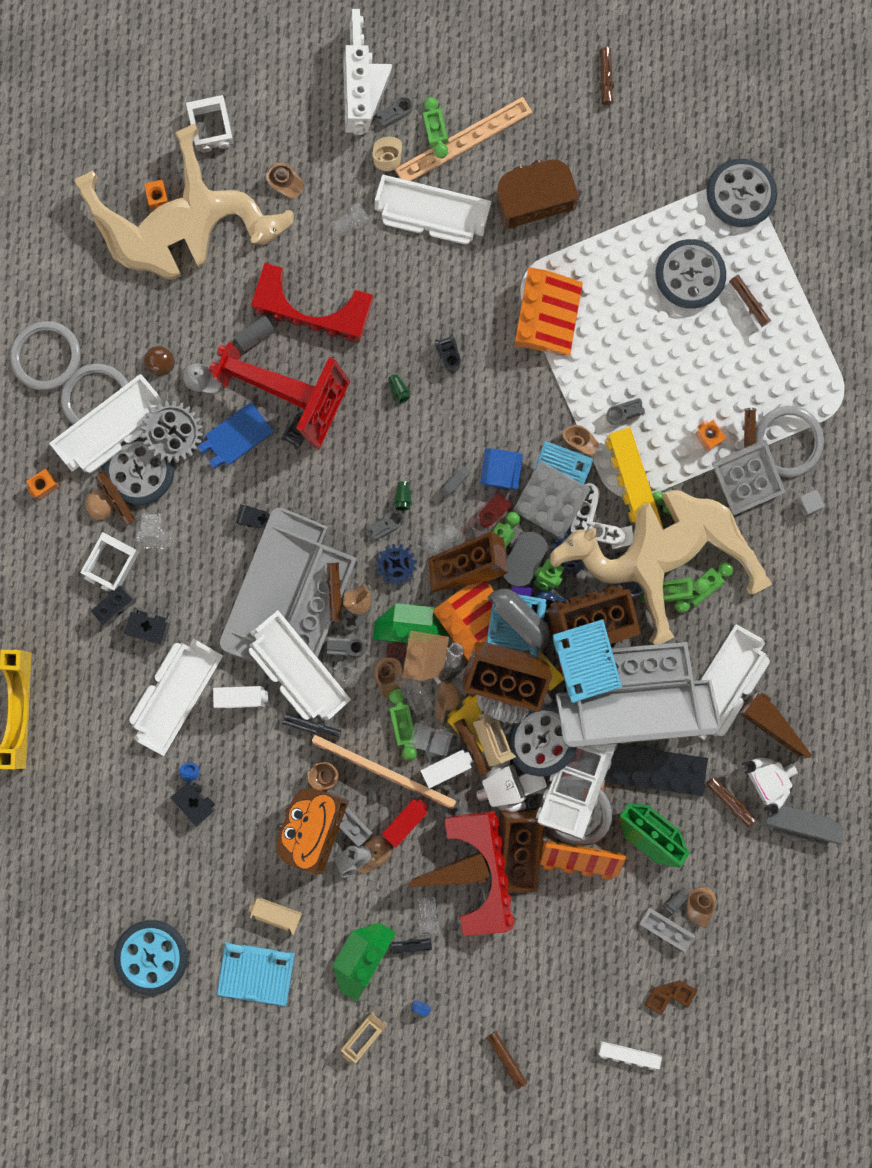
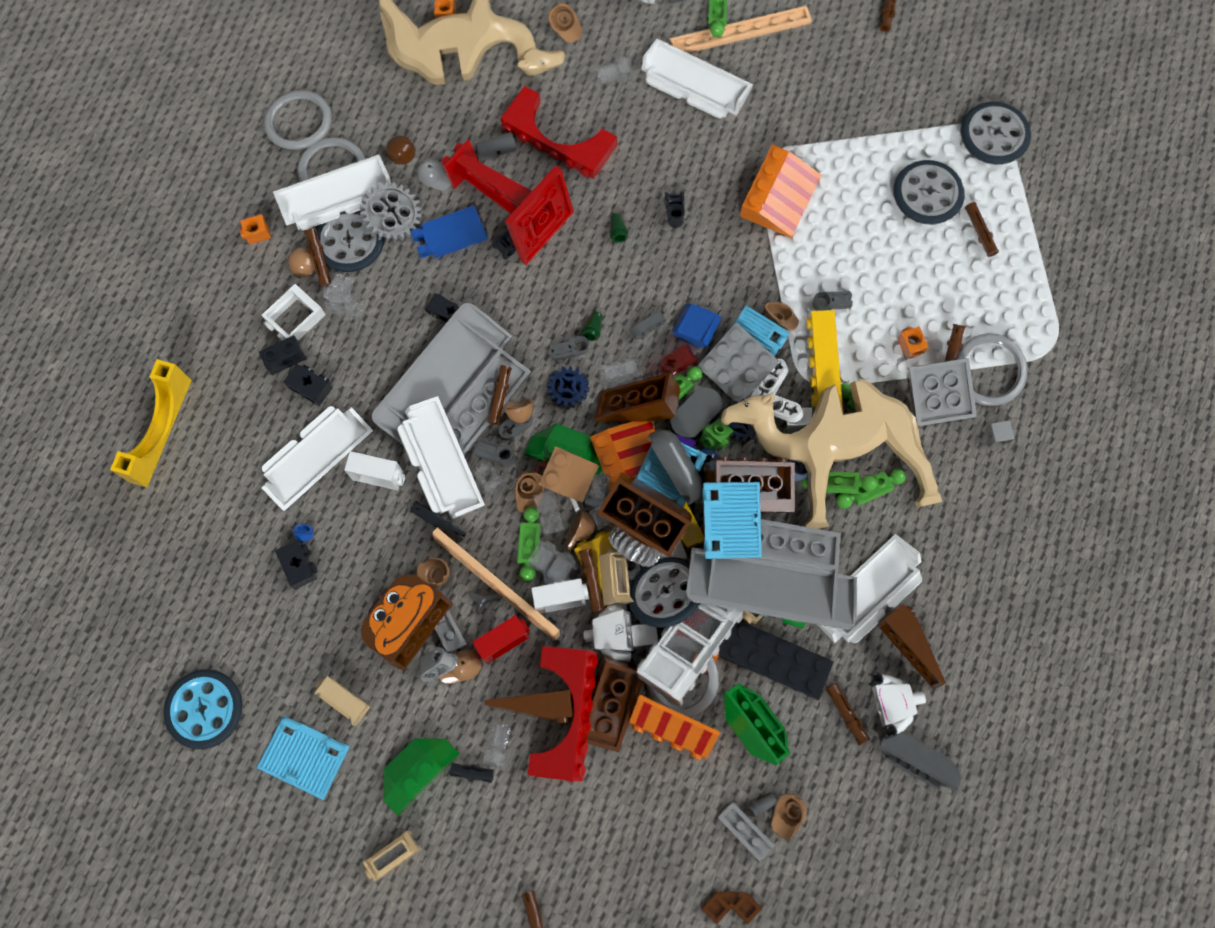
camera: 20 degrees right, 10 degrees down
(387, 153) = (666, 24): tan cap -> none
(420, 1008) = (461, 842): blue tile -> none
(535, 193) = (796, 85): reddish brown brick -> none

